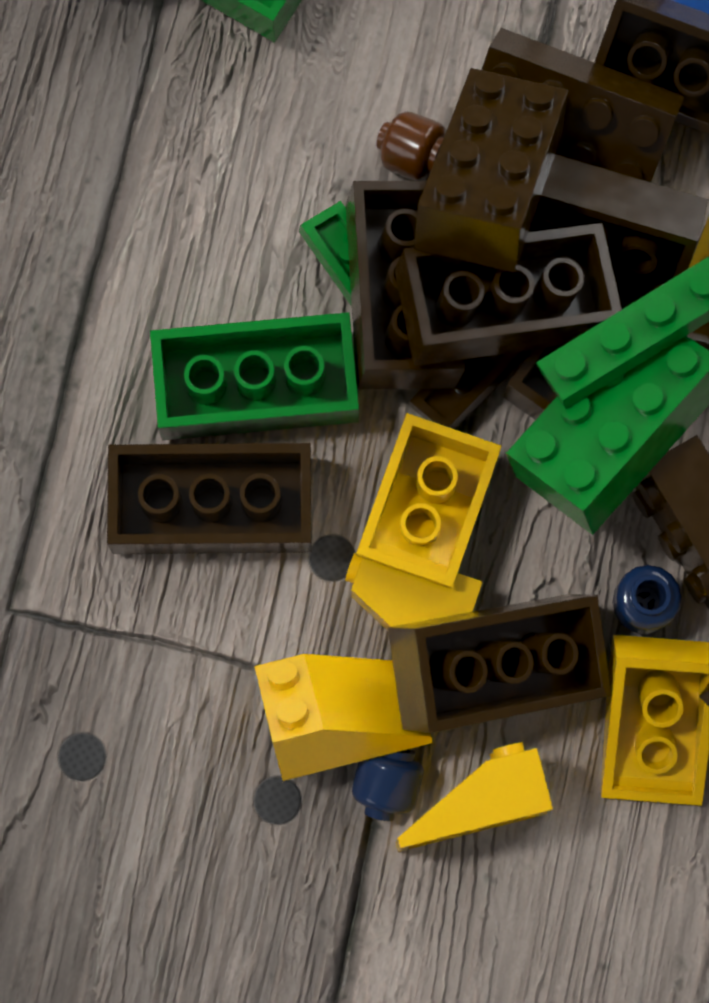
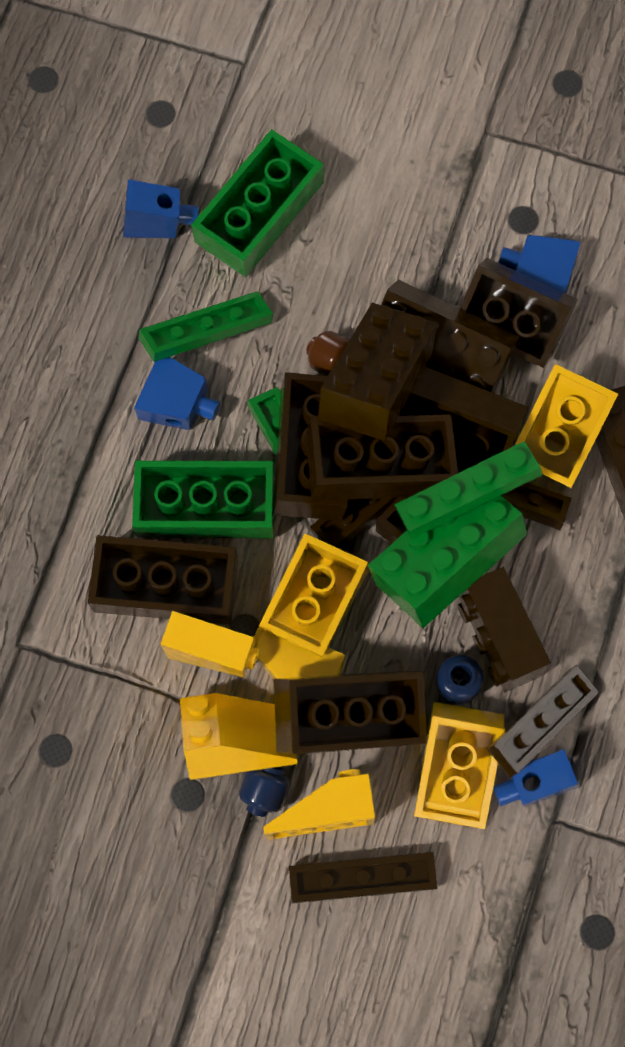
camera: 10 degrees right, 5 degrees down
(193, 227) = (175, 396): none -> blue torso
(226, 121) = (205, 326): none -> green plate
(288, 588) = (208, 645): none -> yellow slope
(539, 891) = (362, 877): none -> dark brown plate

